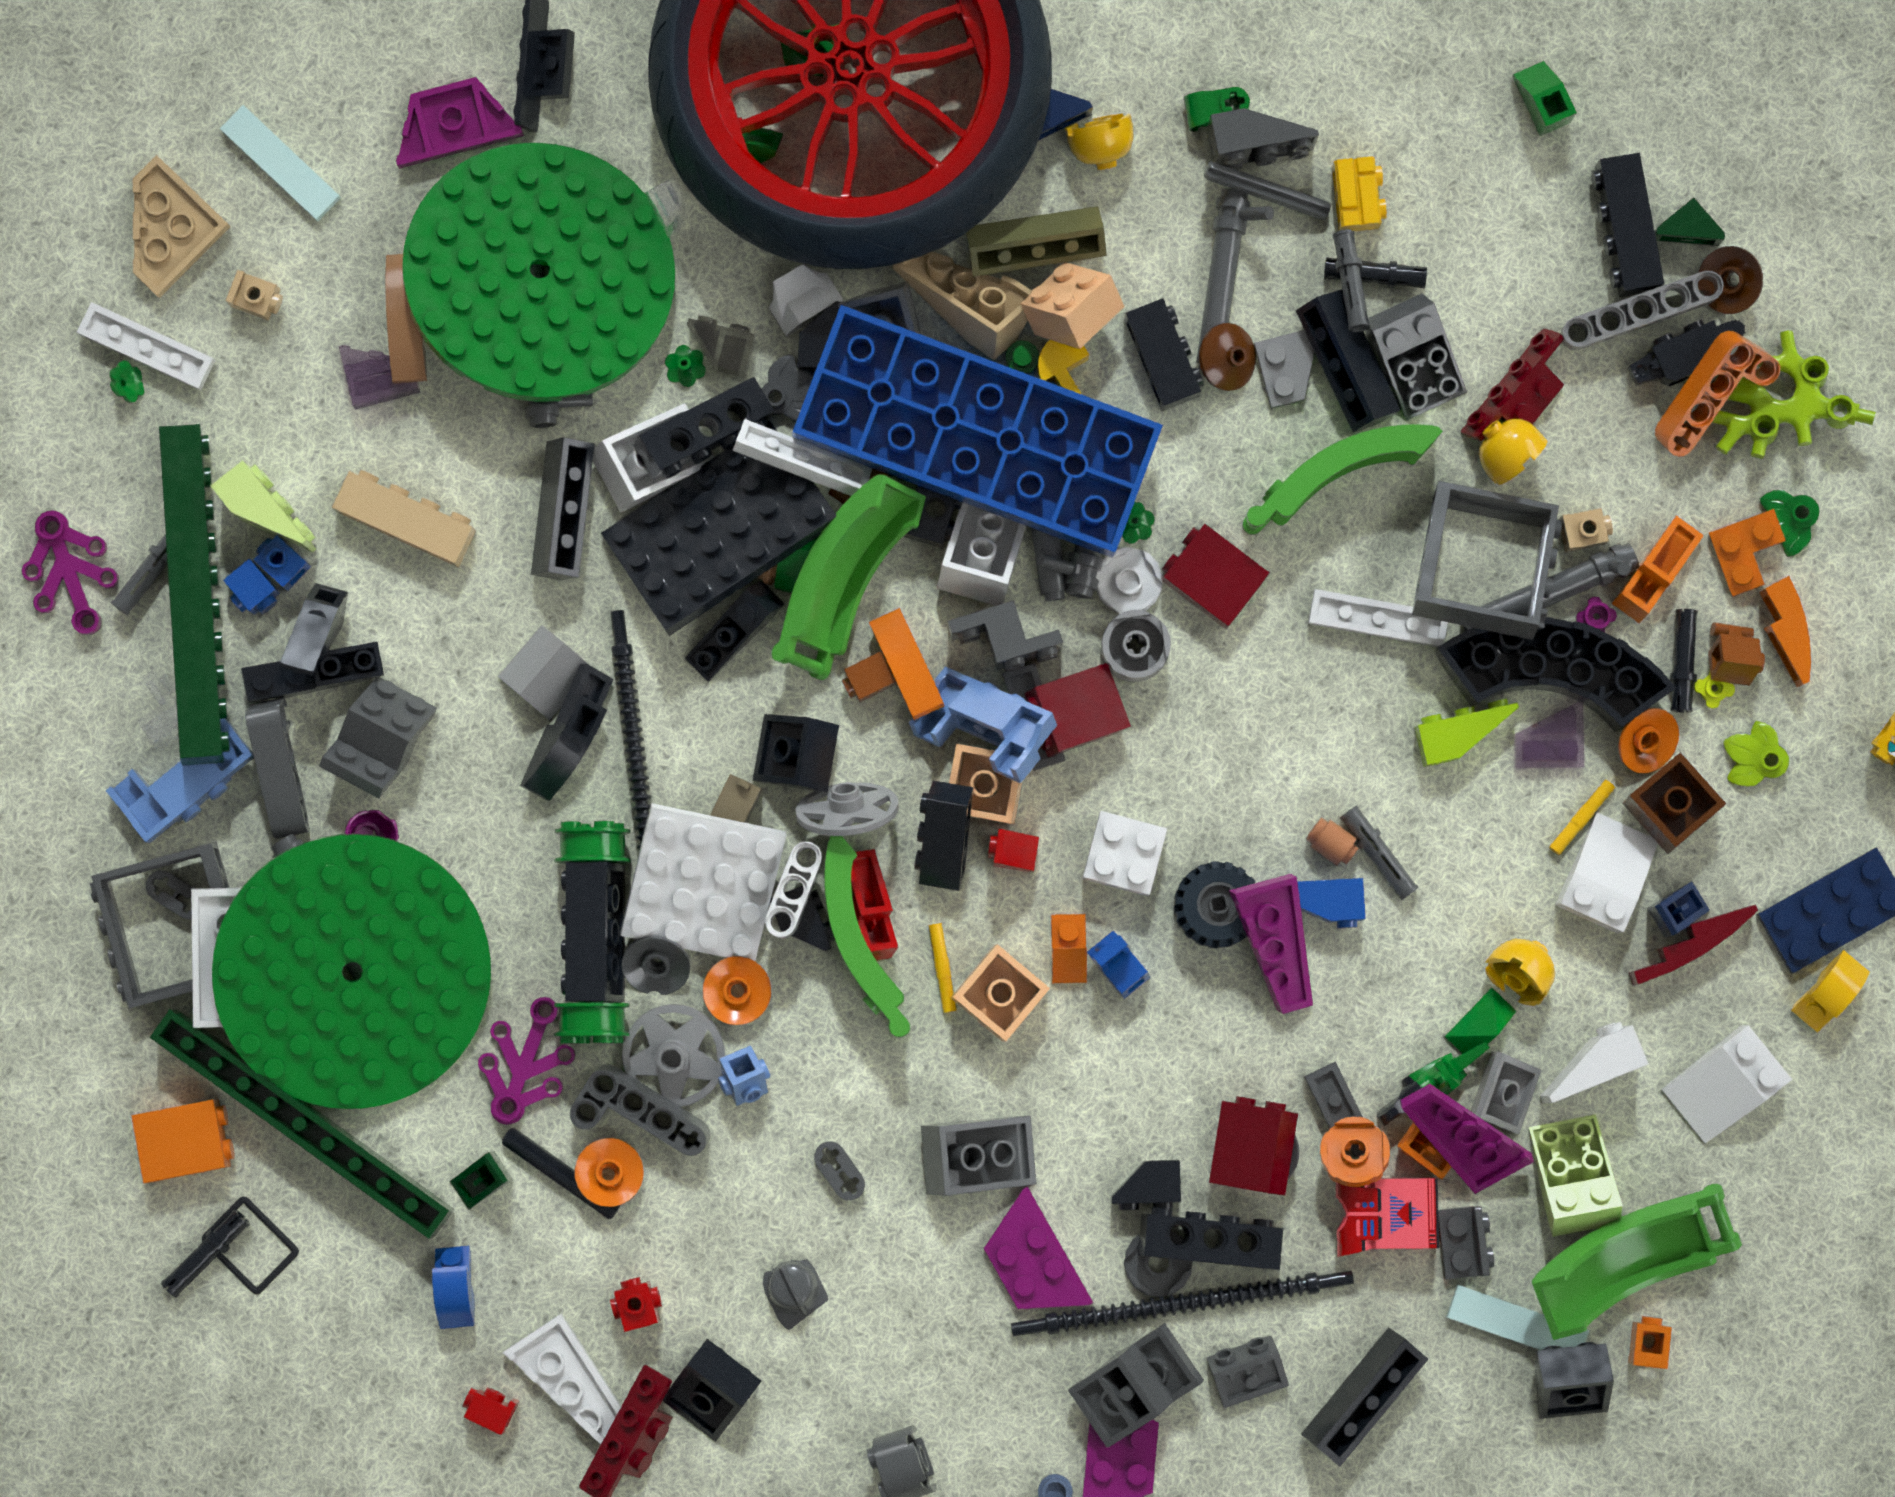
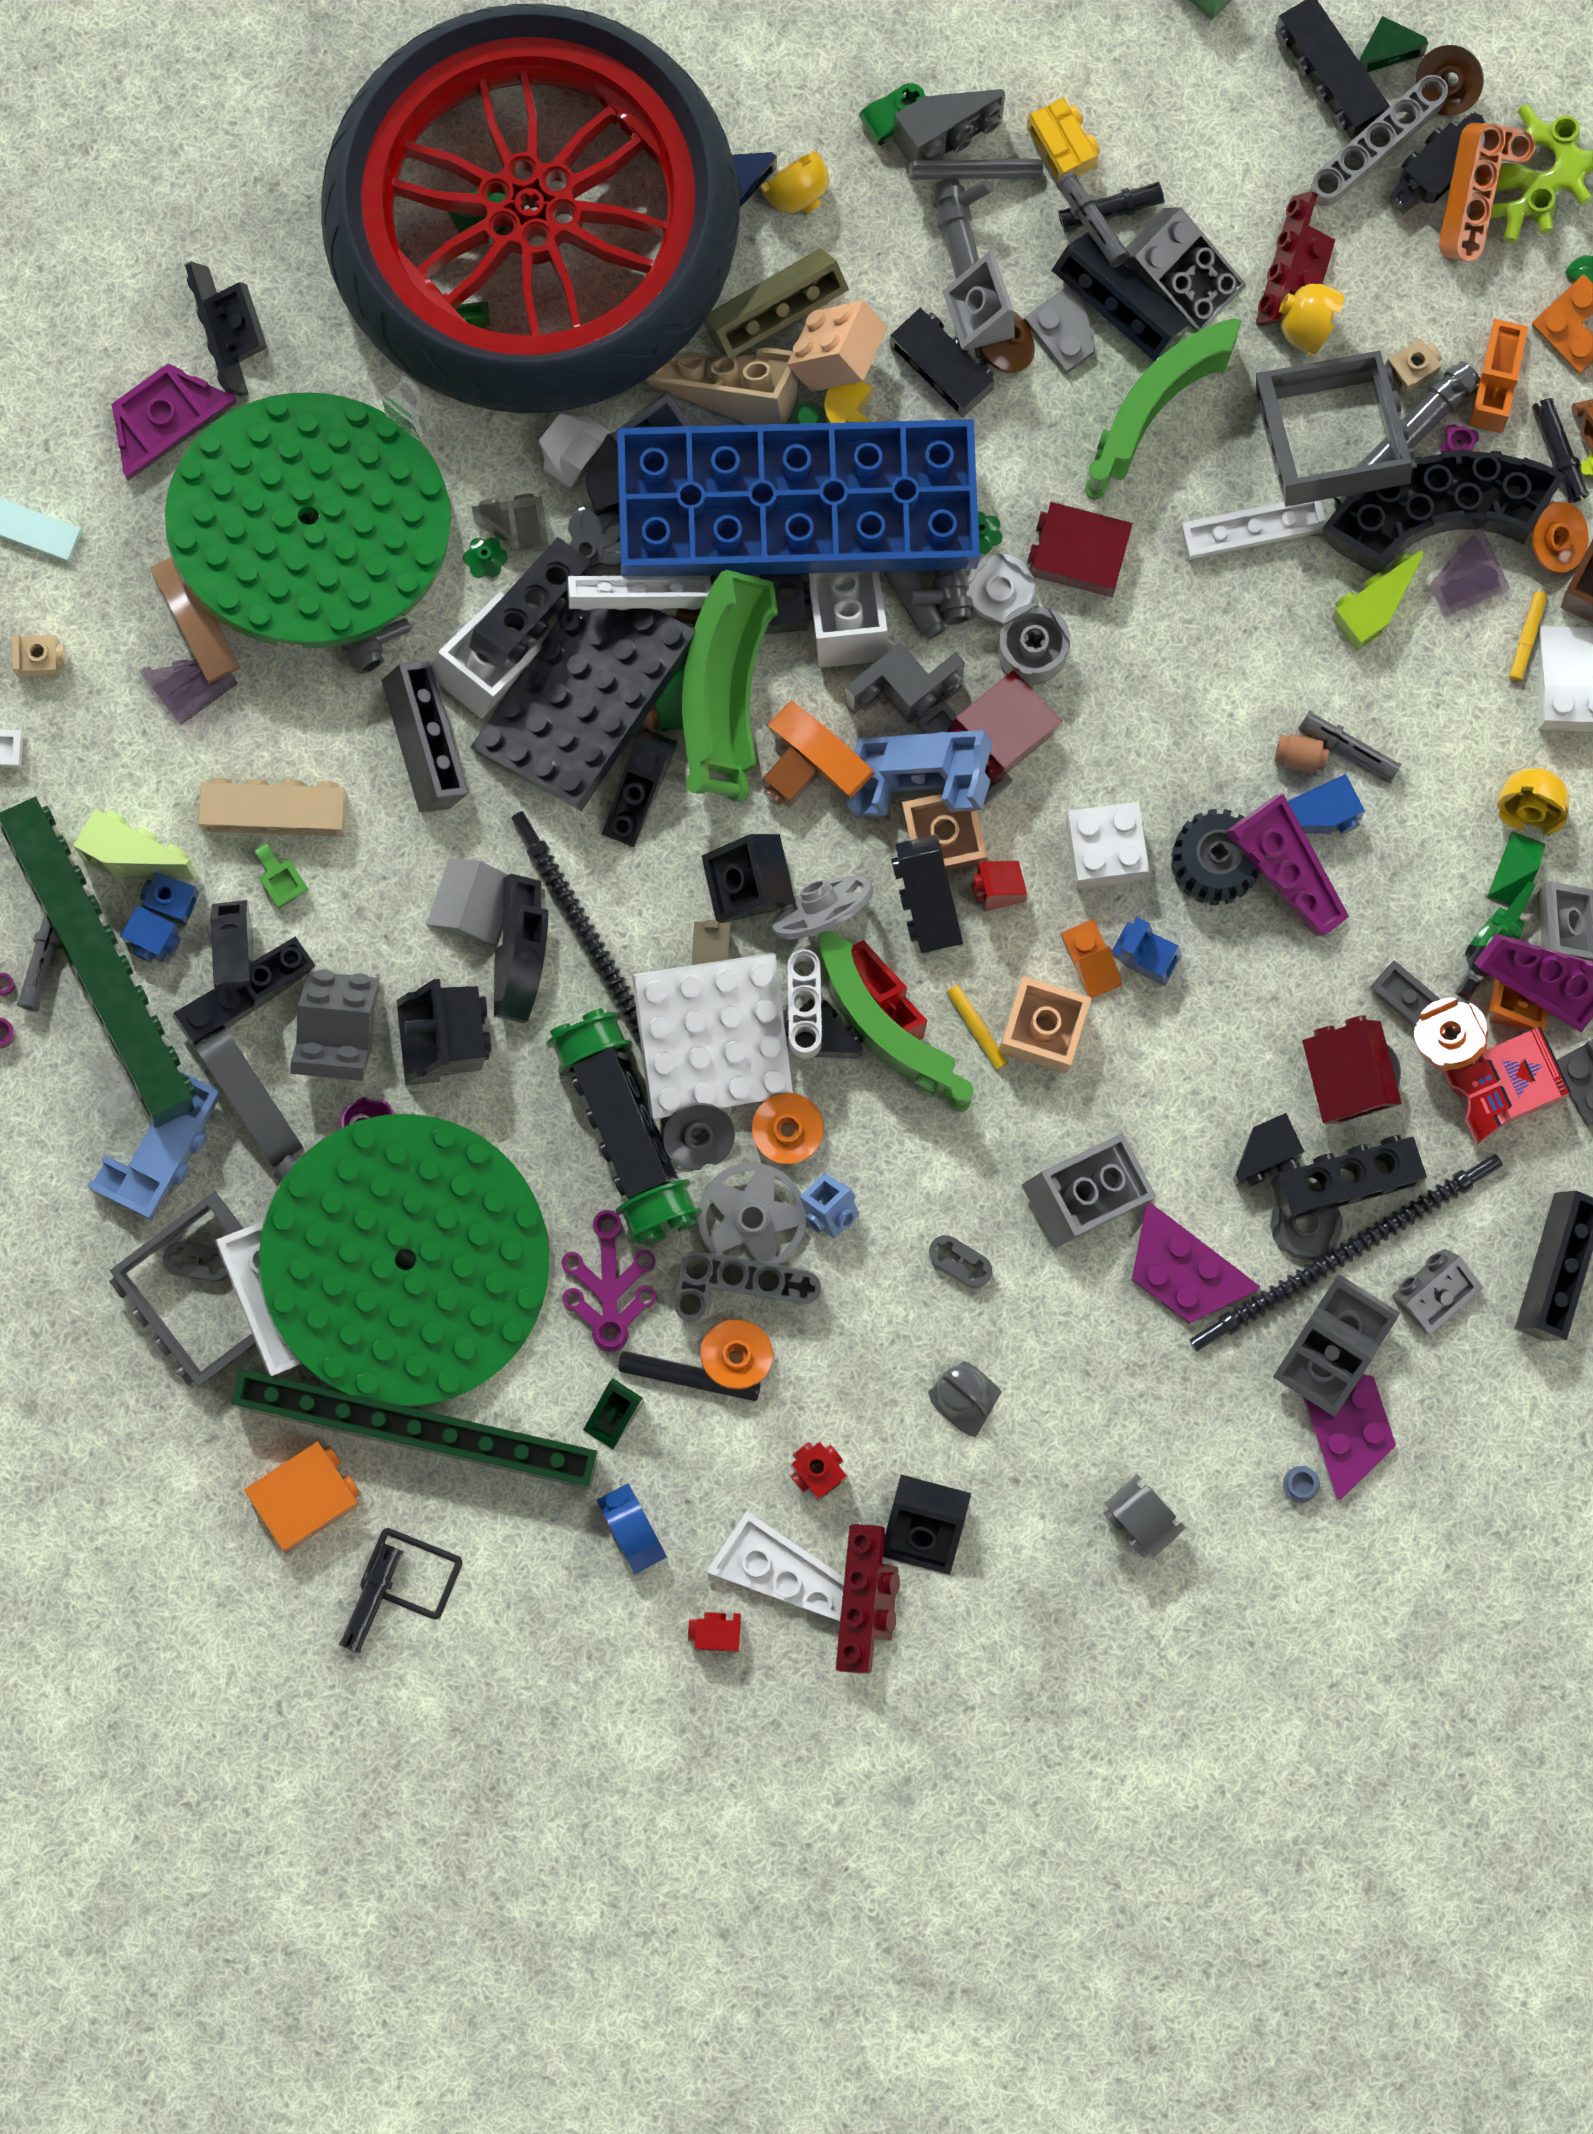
camera: 25 degrees left, 5 degrees down
(385, 586) = (280, 880): none -> bright green plate
(468, 781) = (442, 1032): none -> black piece
(1214, 320) = (980, 305): none -> light grey slope

